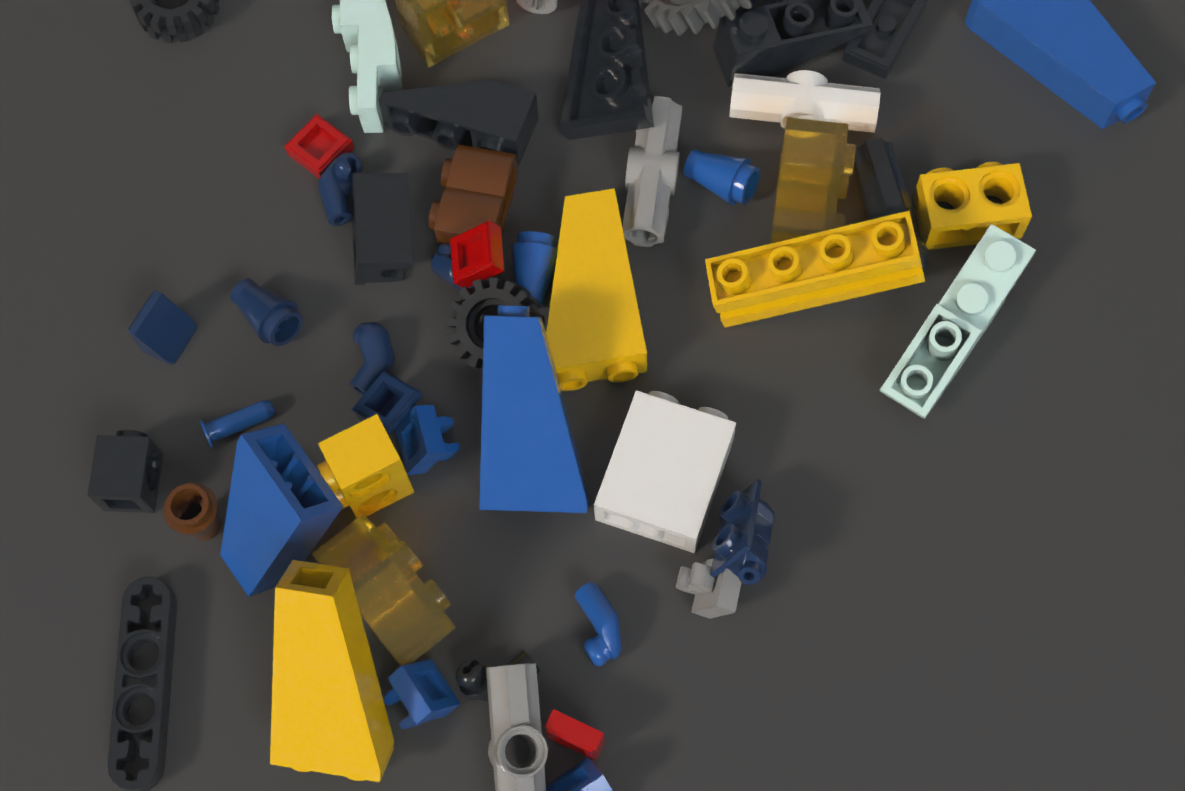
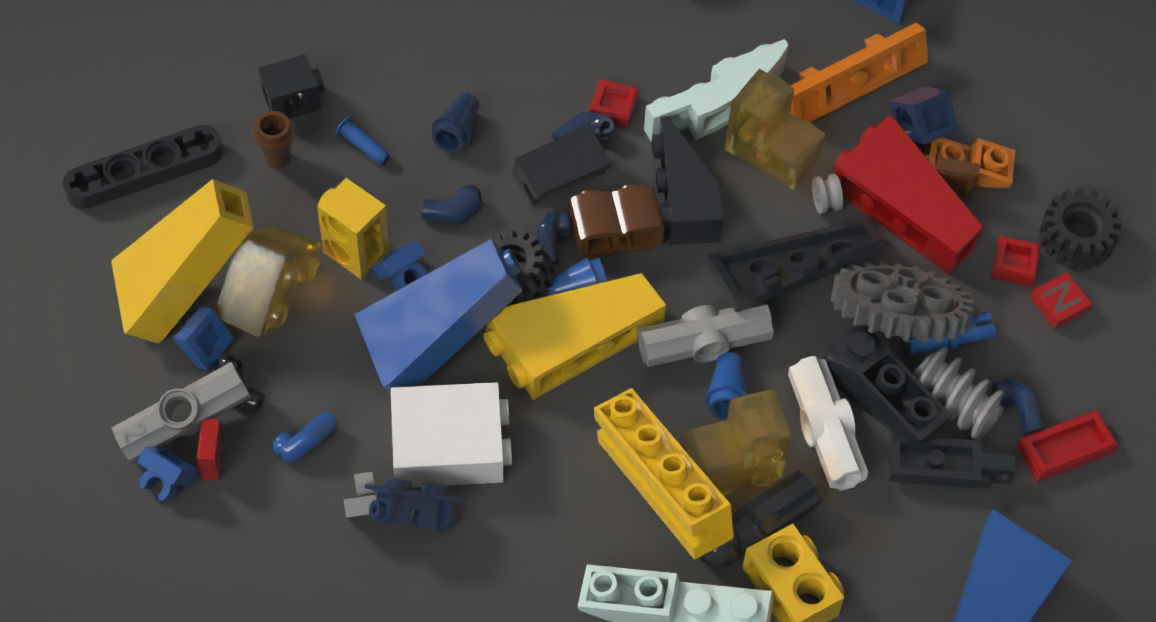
camera: 60 degrees right, 10 degrees down
(162, 328) = (412, 64): dark blue slope -> none
(273, 509) = (295, 177): blue slope -> none
(389, 399) = (416, 224): dark blue slope -> none
(477, 254) = (559, 230): red tile -> none

